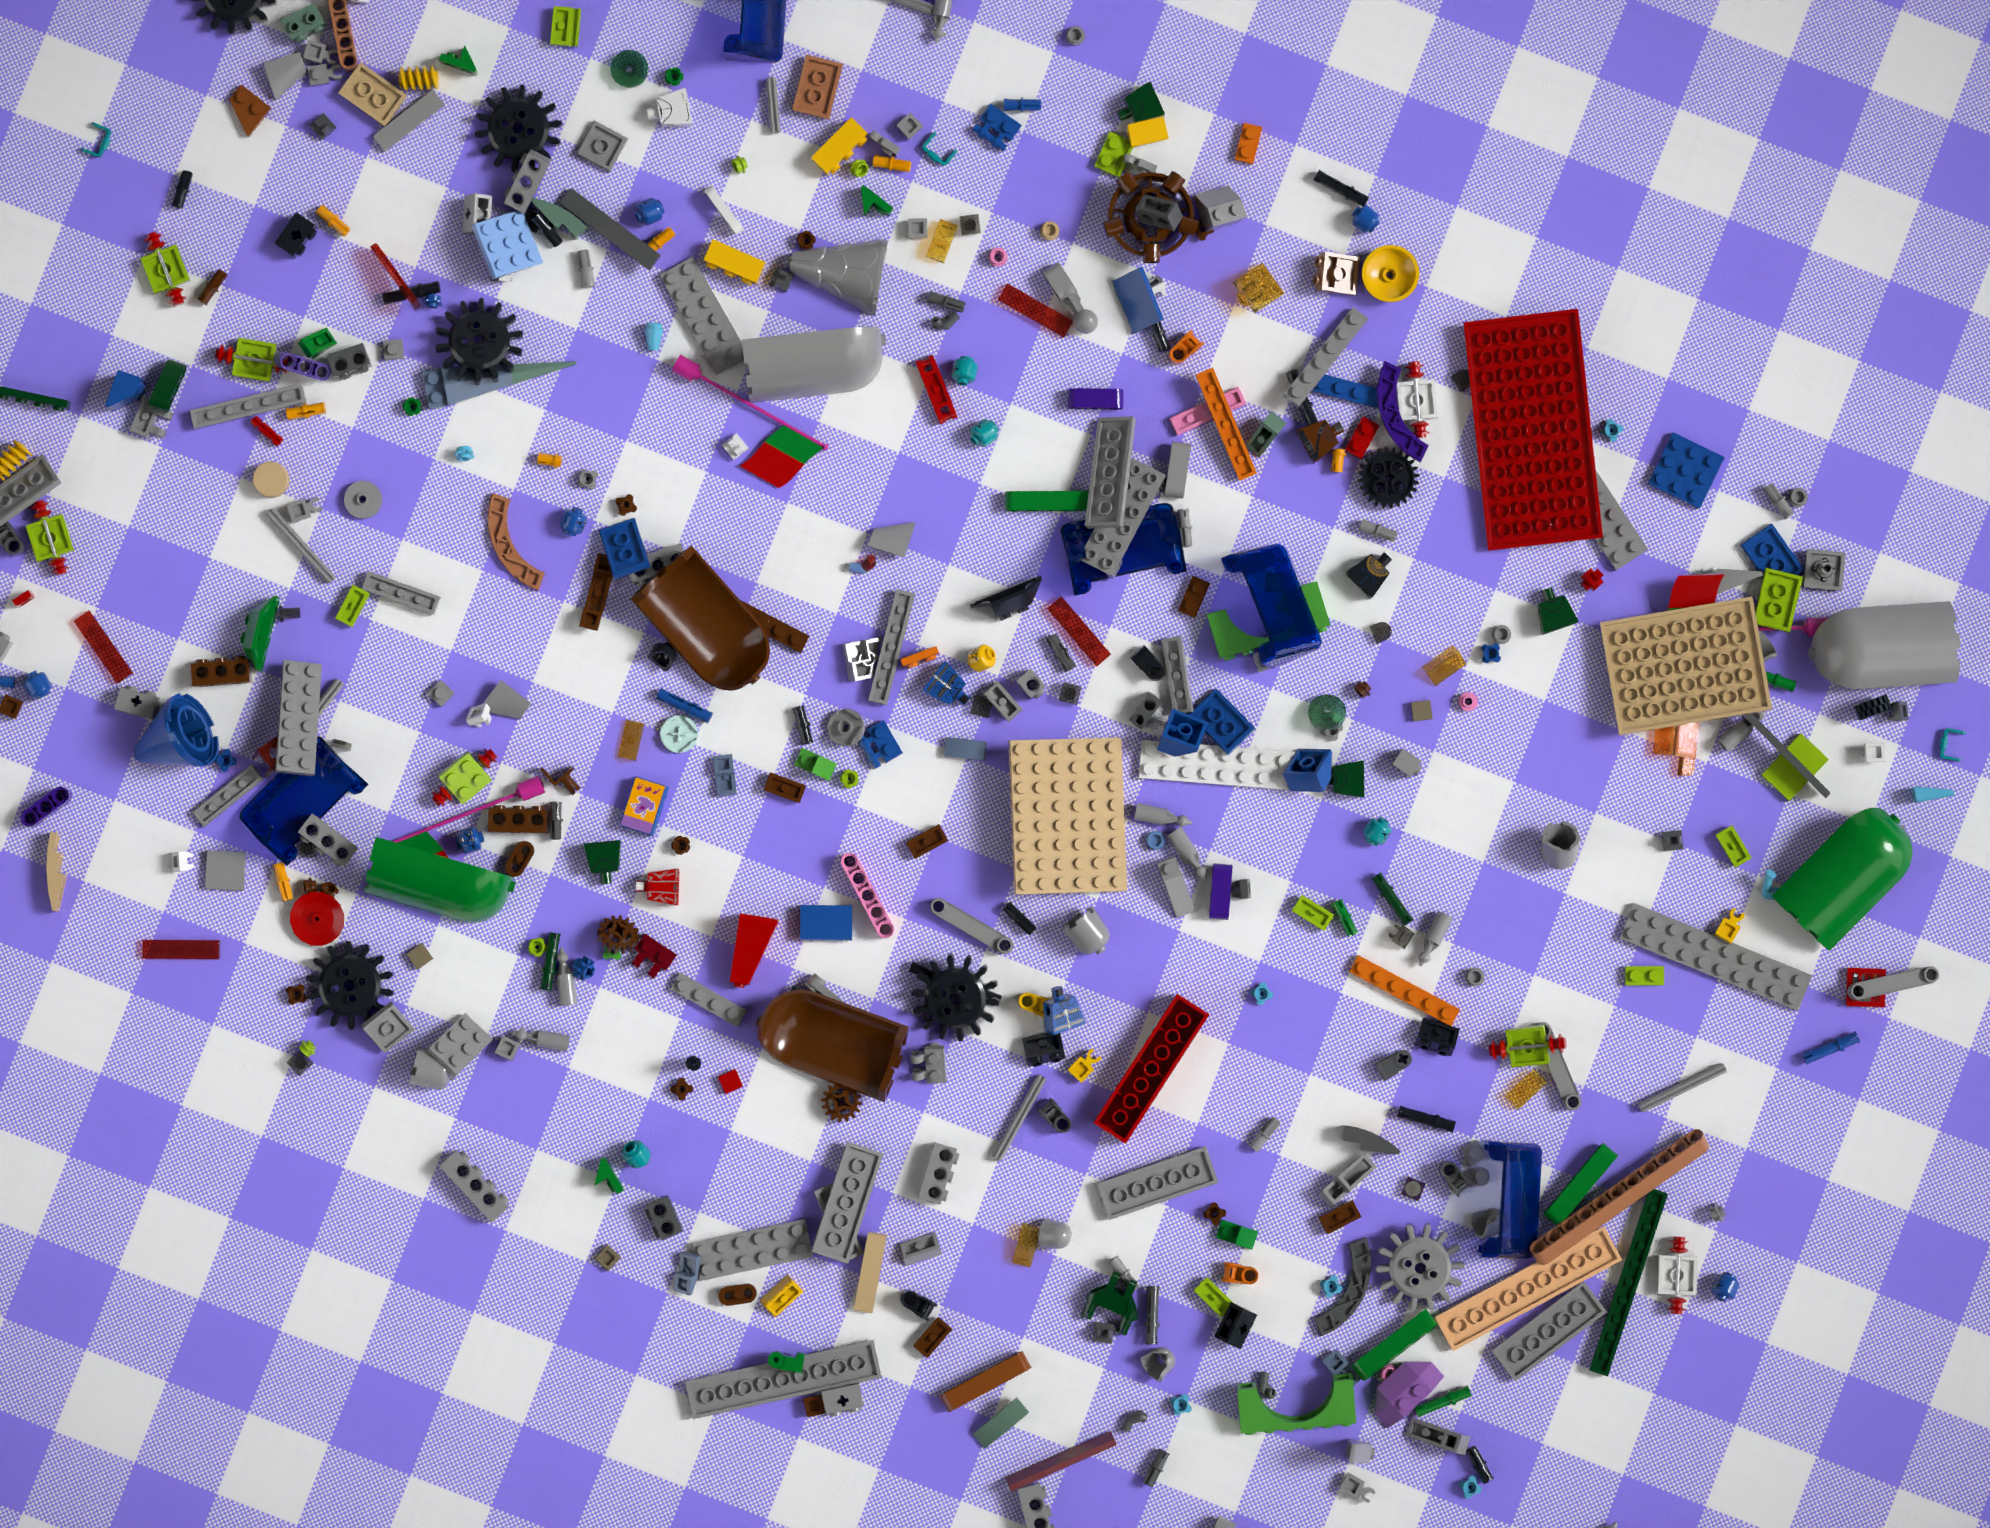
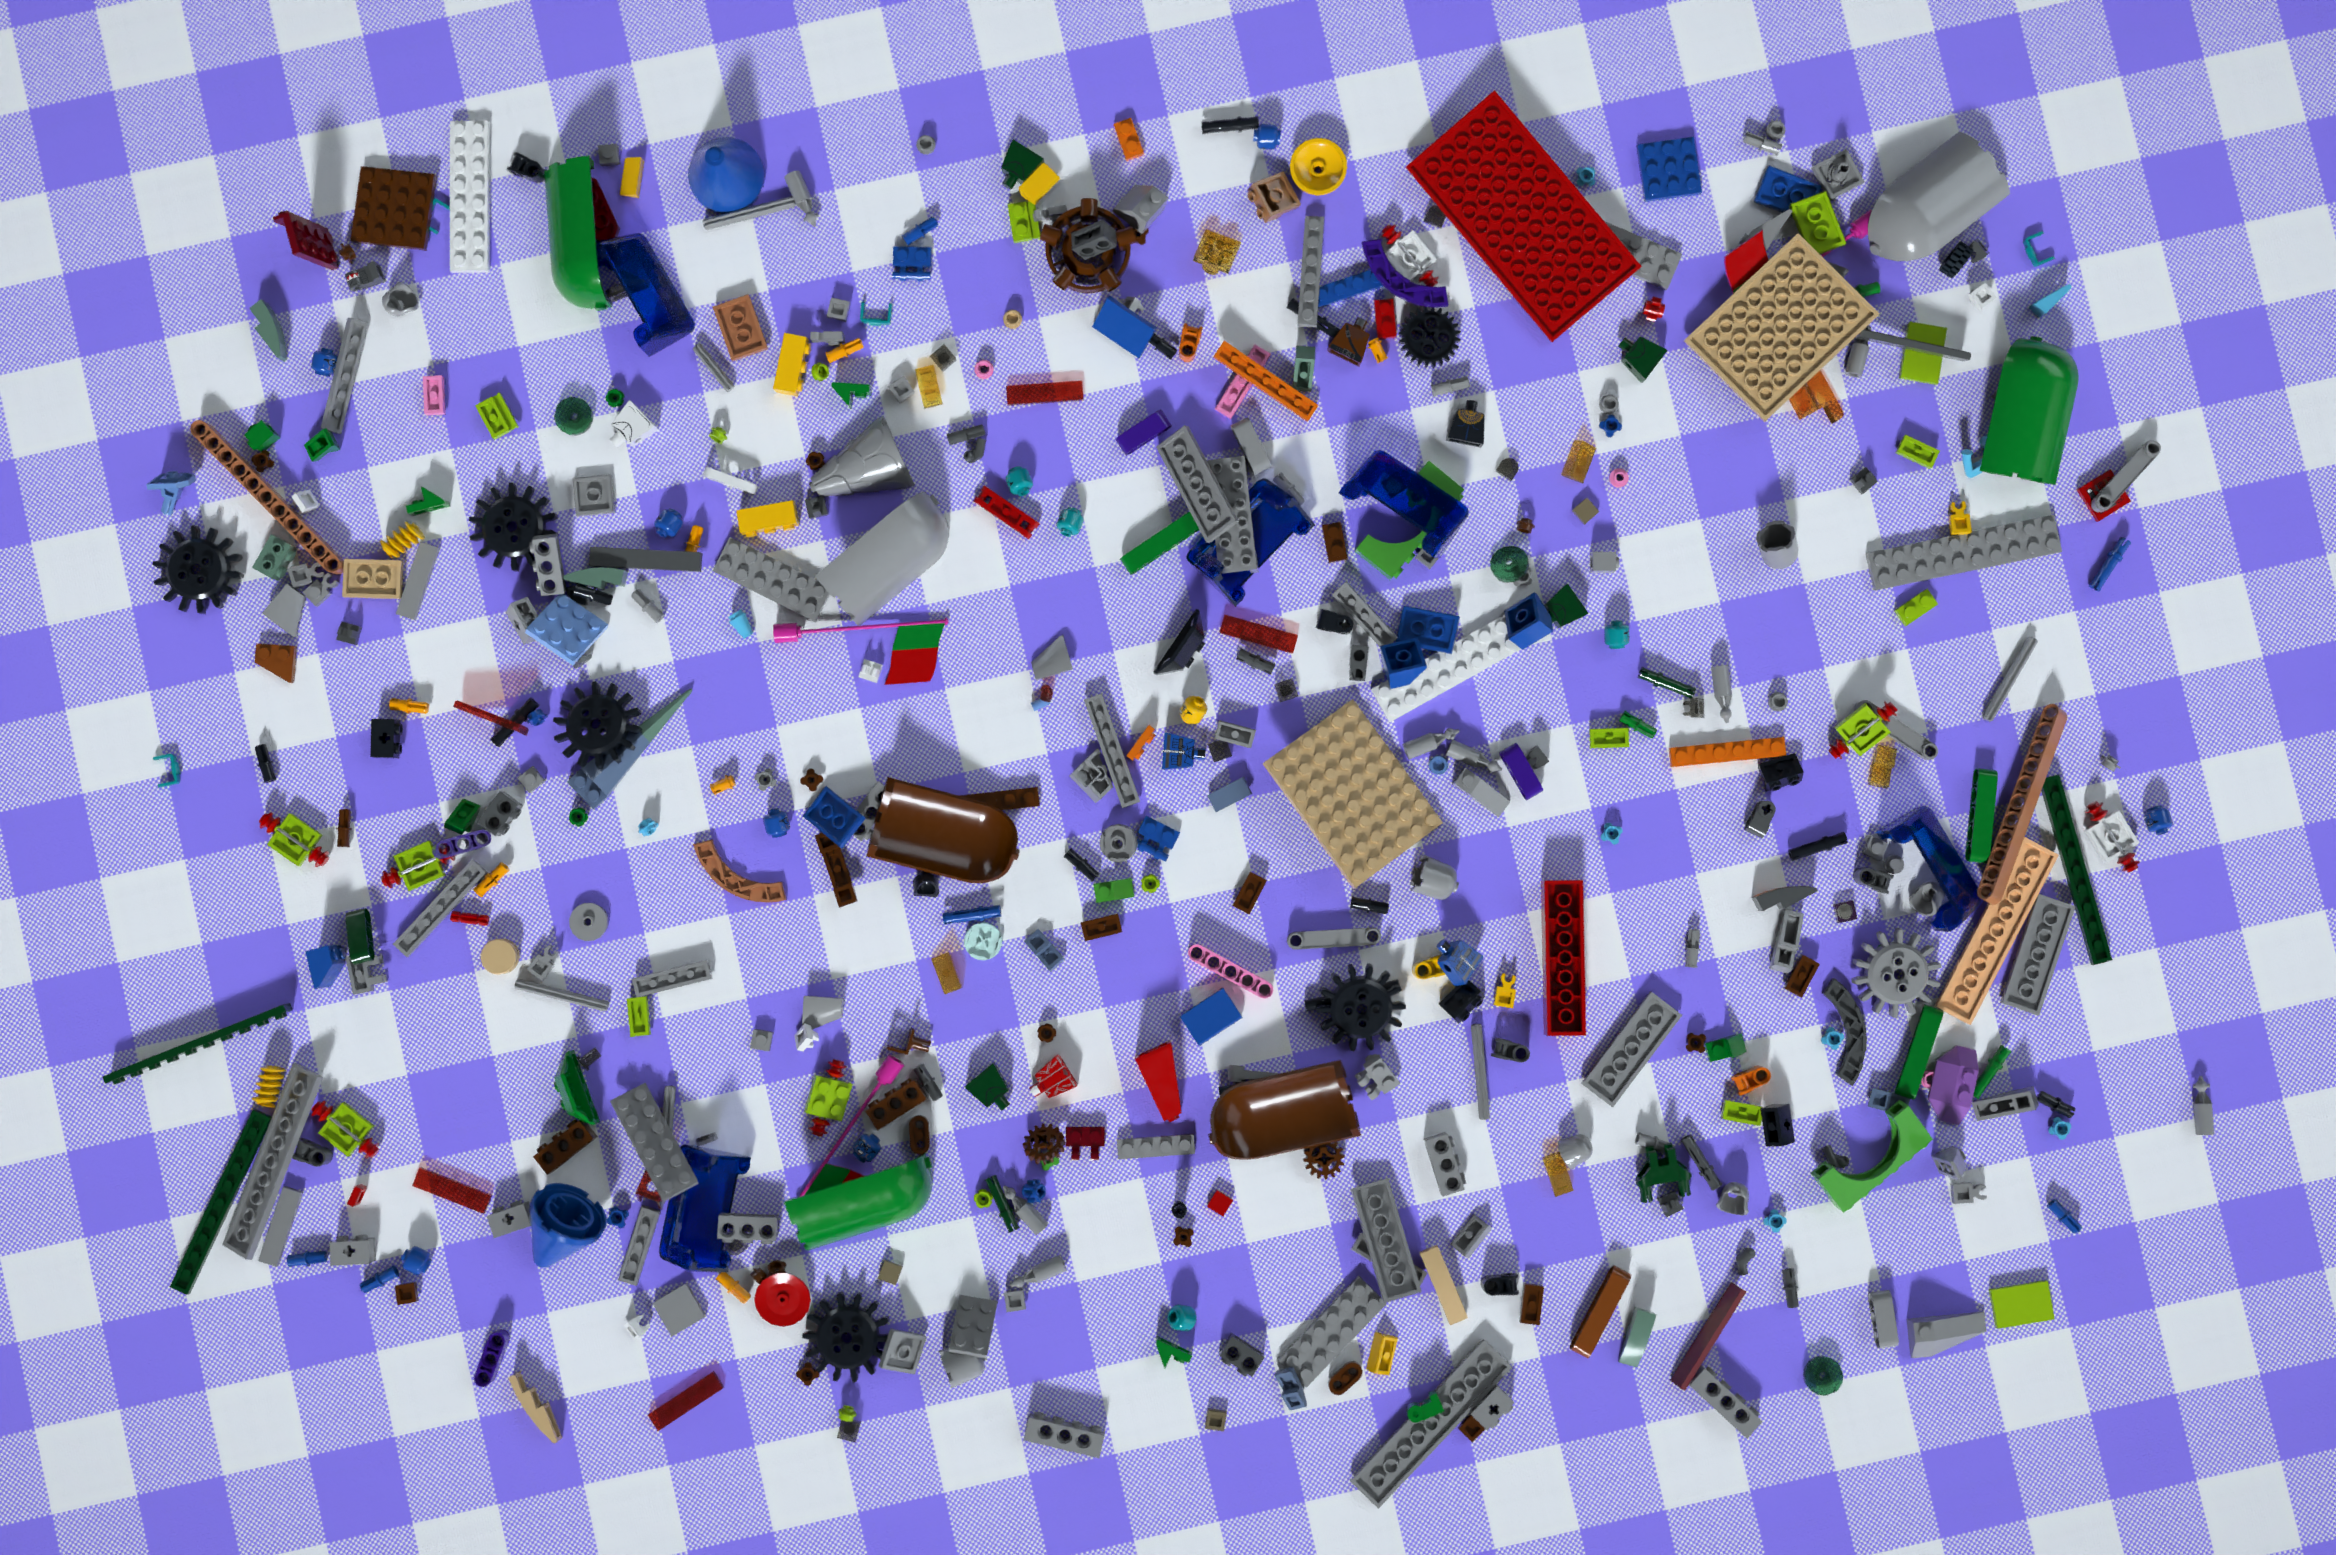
camera: 30 degrees left, 0 degrees up
(644, 806) = (994, 1021): piece -> none
(1030, 675) = (1240, 705): light grey brick -> none
(1084, 320) = (1060, 360): light grey beam -> none

